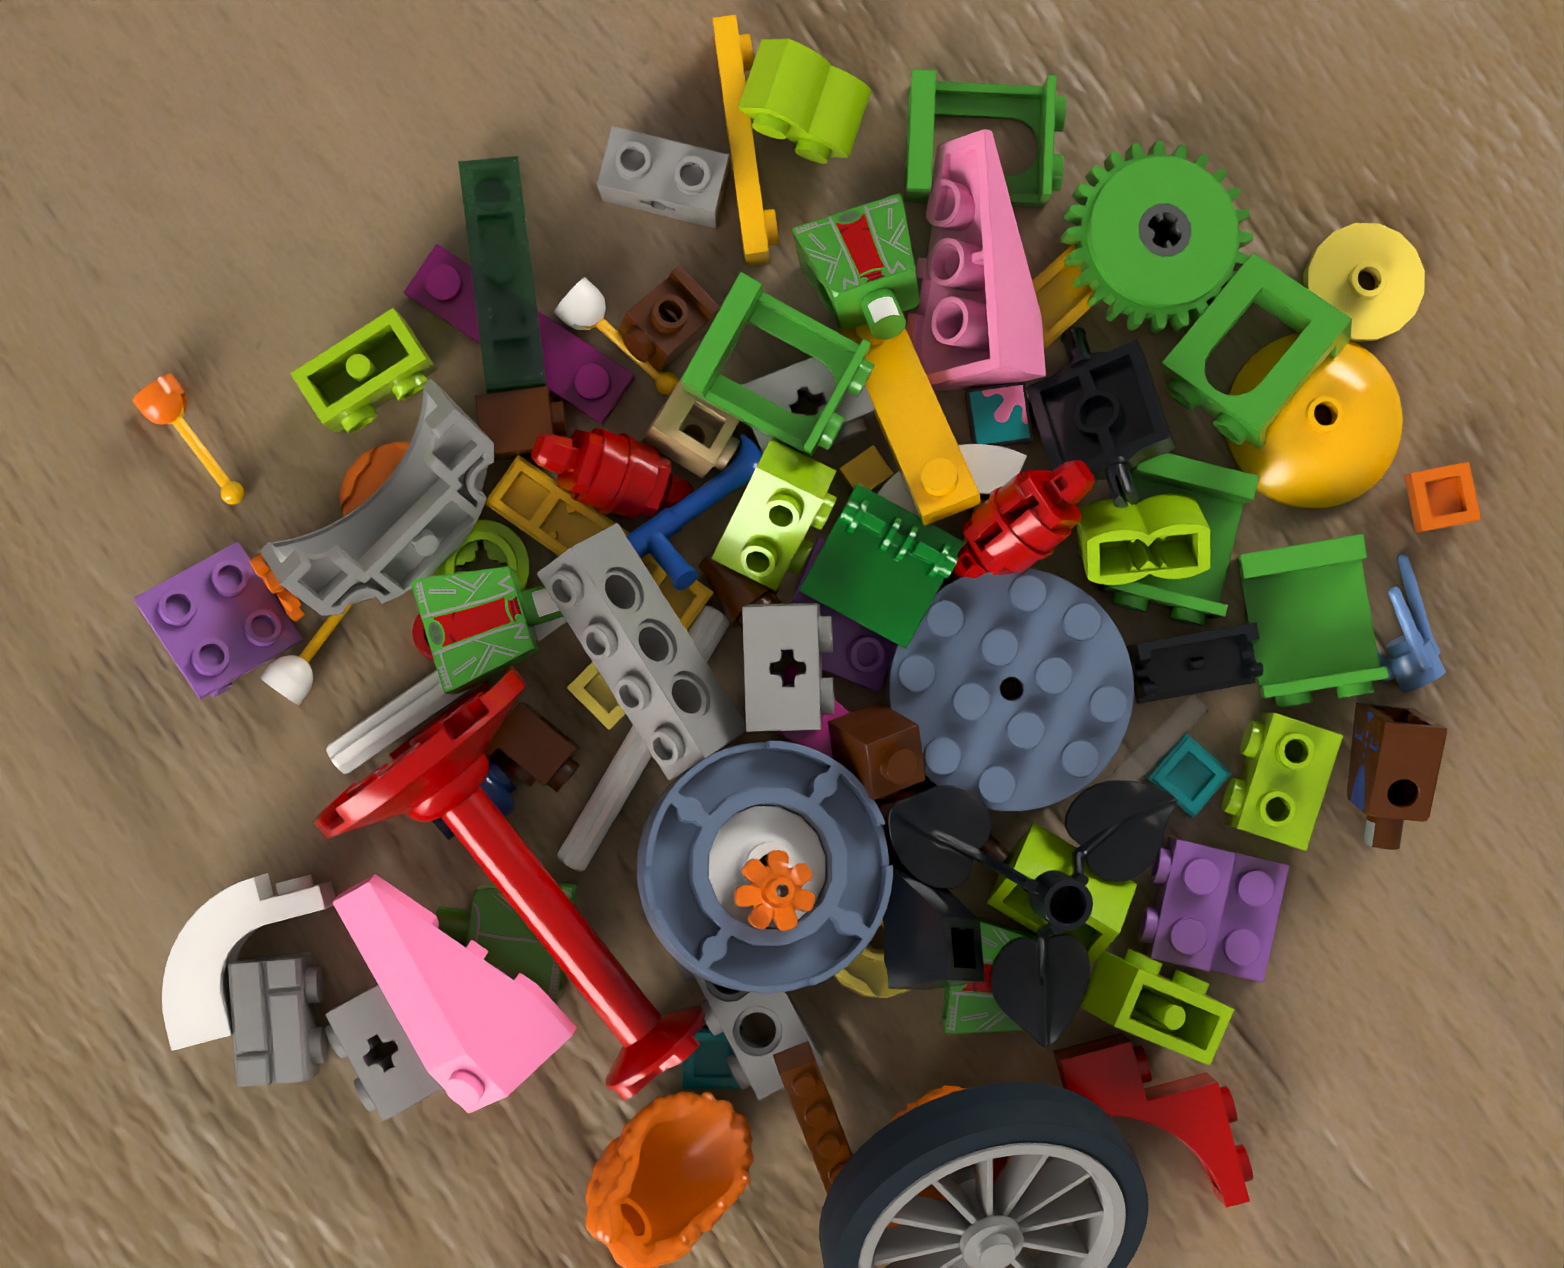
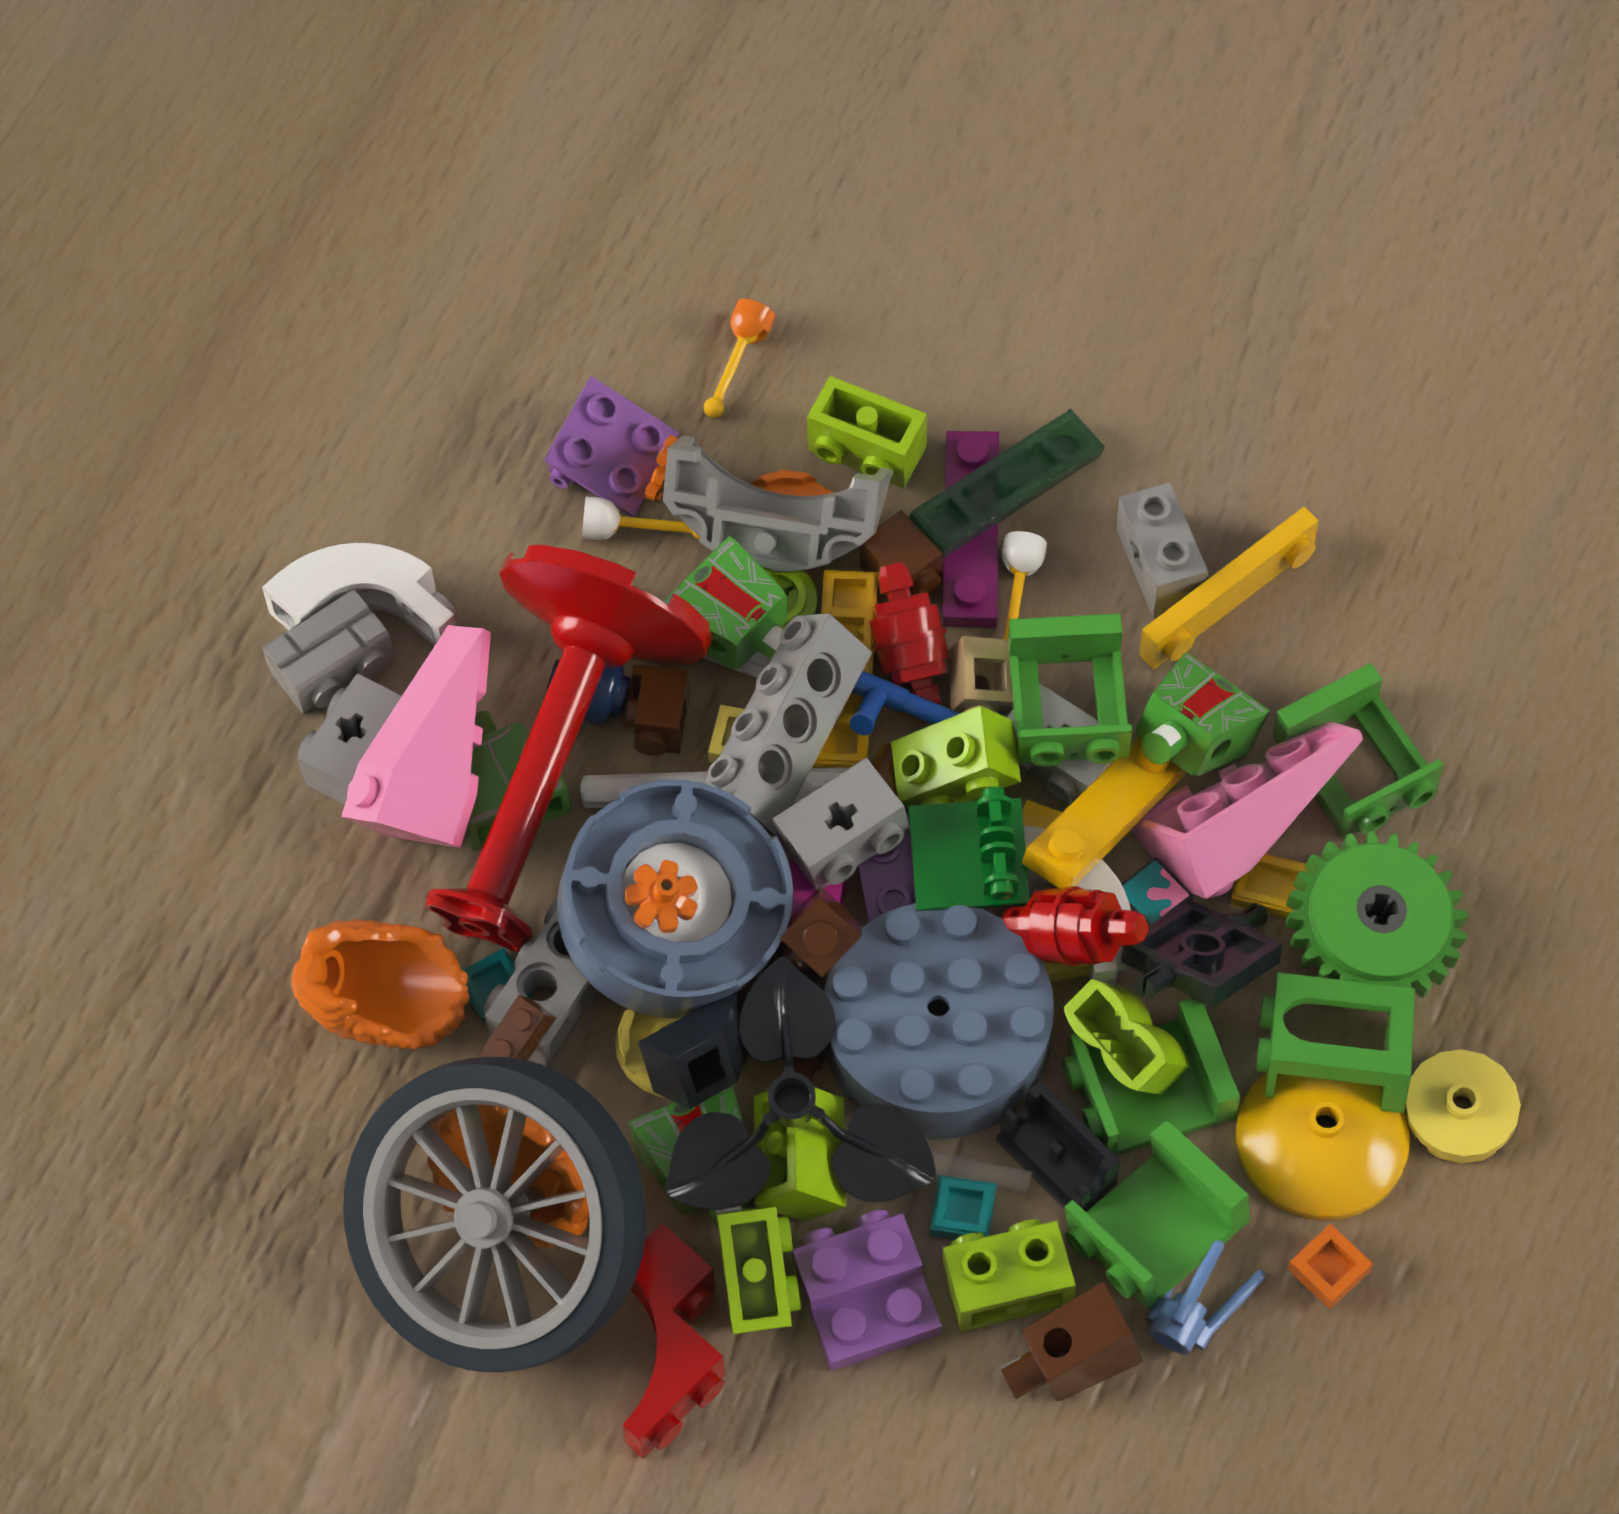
camera: 65 degrees right, 25 degrees down
(686, 308) = (1052, 598): reddish brown brick -> none
(804, 99) = (1289, 604): lime brick -> none

